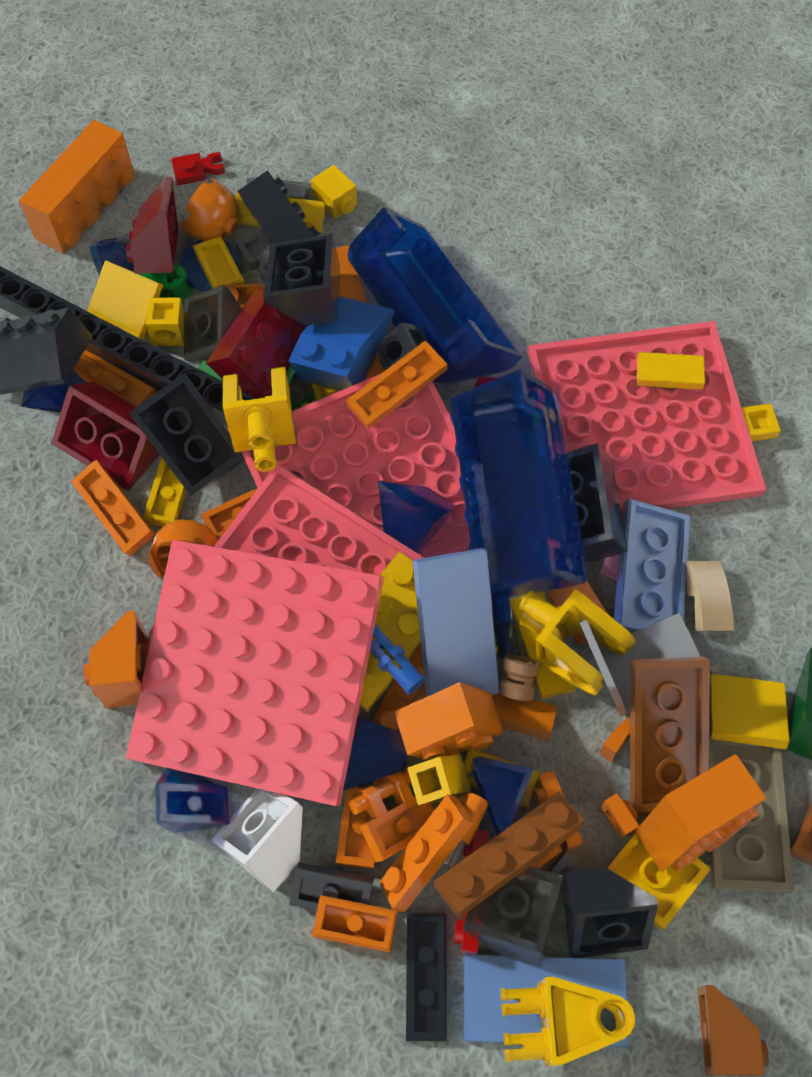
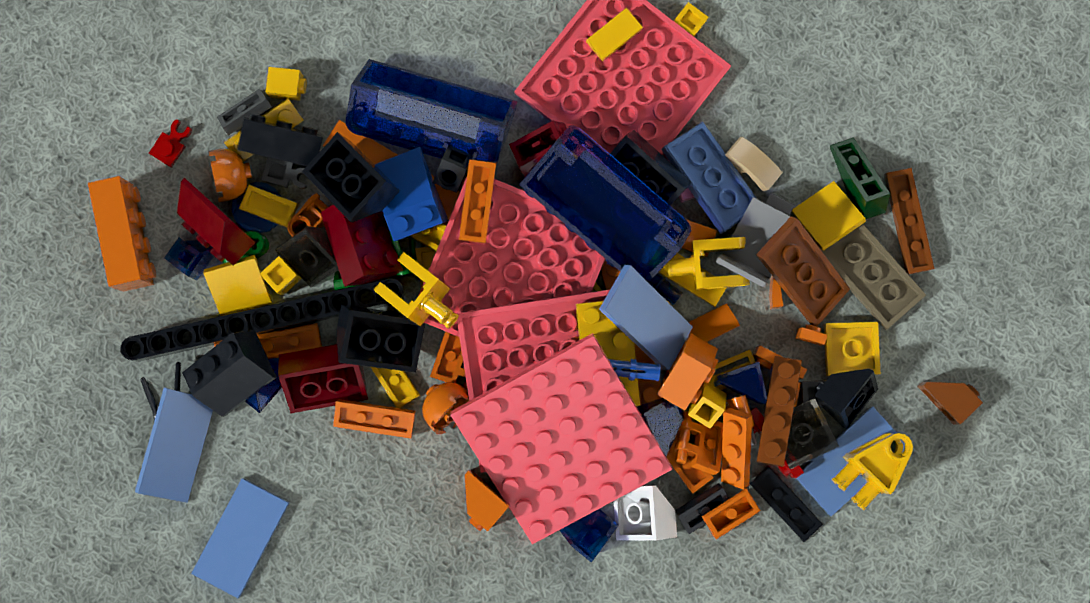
camera: 45 degrees left, 20 degrees up
(412, 513) = (560, 271): clear blue slope -> none
(519, 677) = (697, 311): medium nougat wheel -> none
(700, 815) = (862, 311): orange brick -> none

